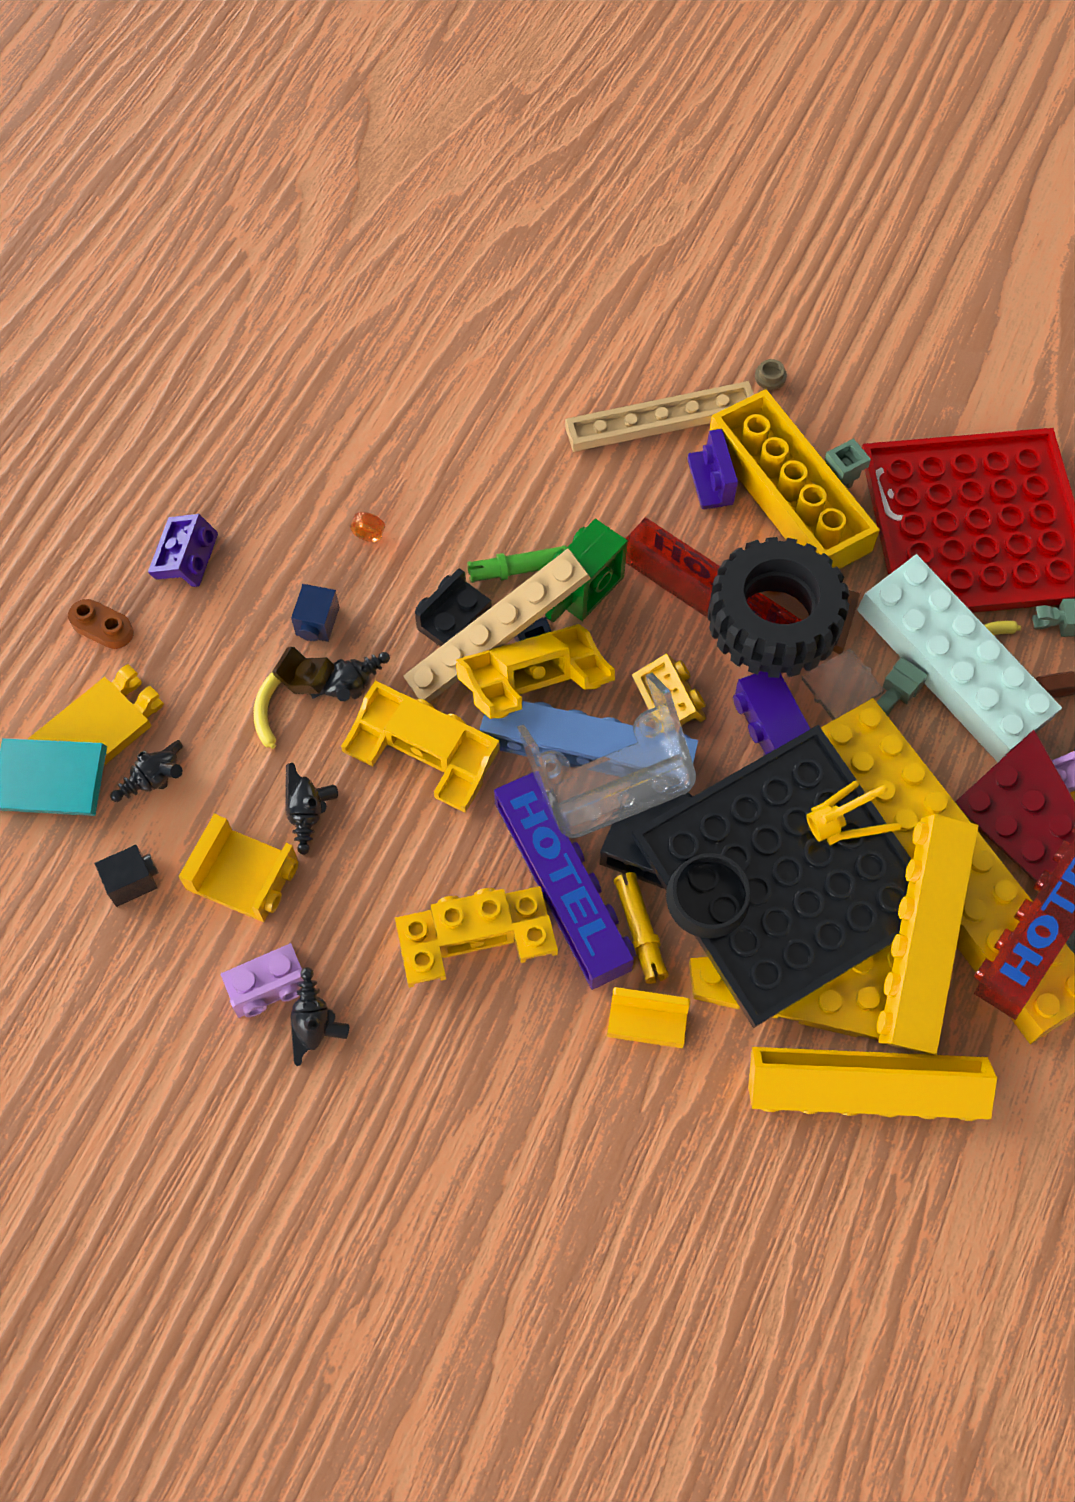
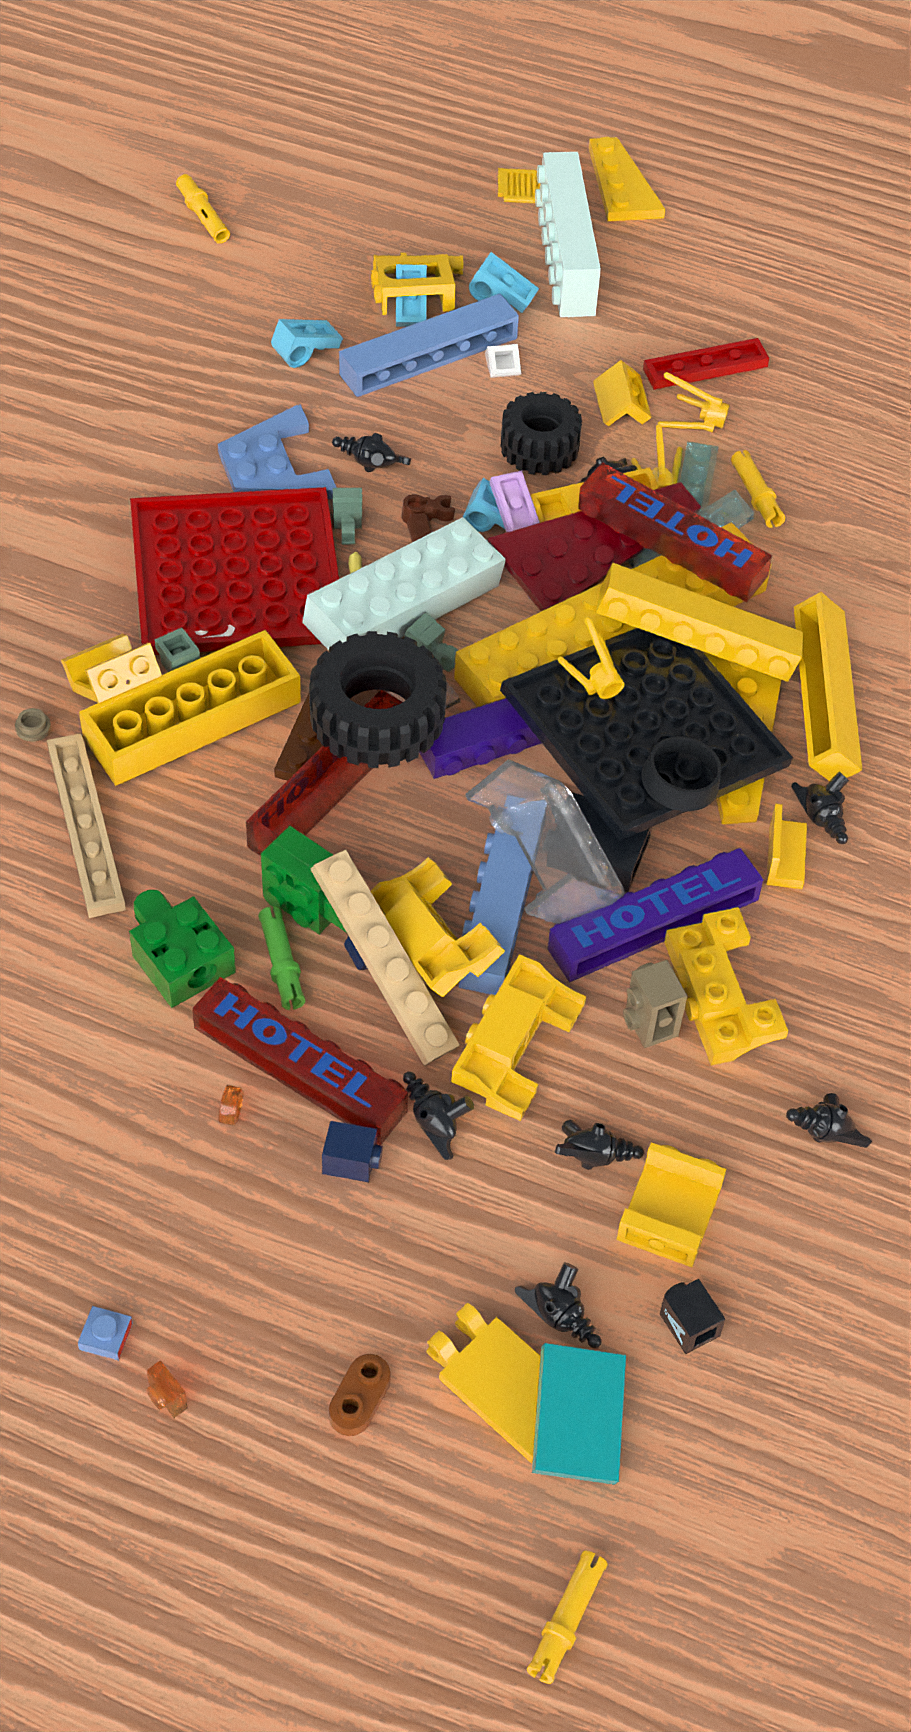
camera: 95 degrees left, 10 degrees down
(118, 490) = (165, 1390): none -> clear orange plate
(177, 454) = (105, 1333): none -> medium blue plate
(184, 549) = (256, 1307): dark purple bracket -> none
(261, 711) = (470, 1206): light yellow piece -> none
(263, 981) = (792, 1173): lavender bracket -> none
(301, 673) = (431, 1154): dark brown bracket -> none
(408, 577) = (300, 1059): none -> clear red brick
(444, 859) = (655, 1003): none -> dark tan brick
(450, 608) = (342, 1020): black bracket -> none
(526, 484) = (179, 946): none -> green brick
(644, 940) = (694, 854): yellow pin -> none
(674, 677) = (443, 824): yellow bracket -> none
(707, 1066) = (825, 805): none -> black piece
(713, 472) = (170, 773): dark purple bracket -> none
(831, 411) = (104, 668): none -> yellow panel

